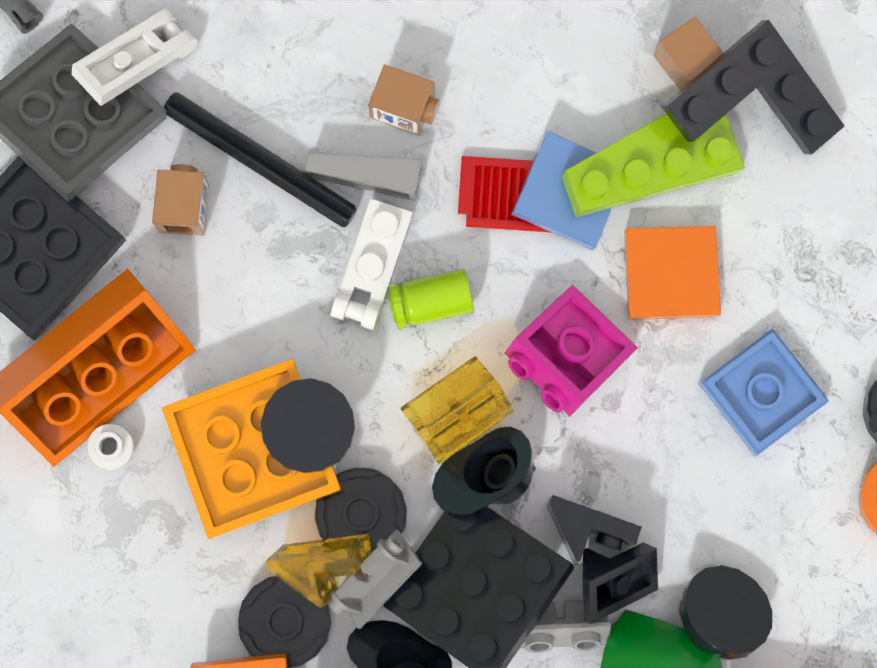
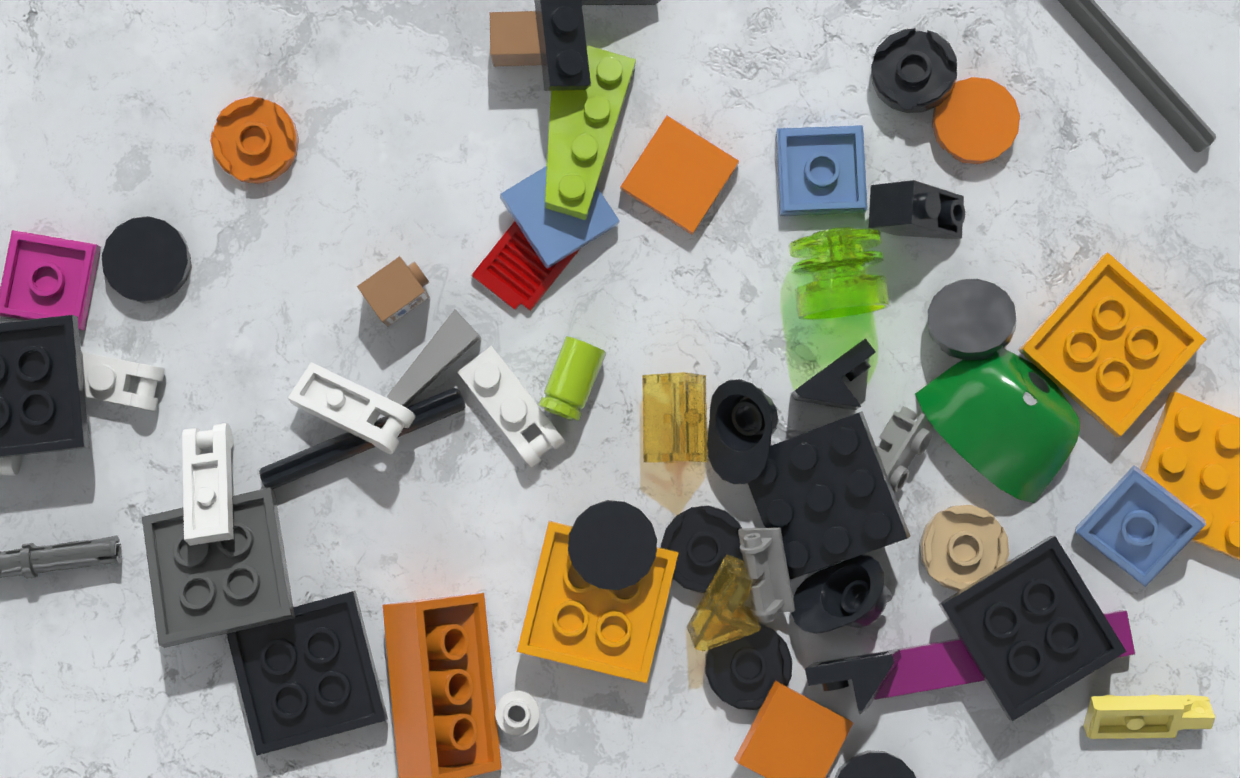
camera: 55 degrees left, 5 degrees up
(180, 201) = (354, 525): medium nougat brick -> none
(278, 129) = (350, 407): none -> white plate
(569, 351) = (689, 299): dark pink plate -> none
(618, 580) = (894, 385): black slope -> none
(689, 458) = (839, 274): none -> clear neon green wheel
(787, 497) = (916, 210): none -> black slope

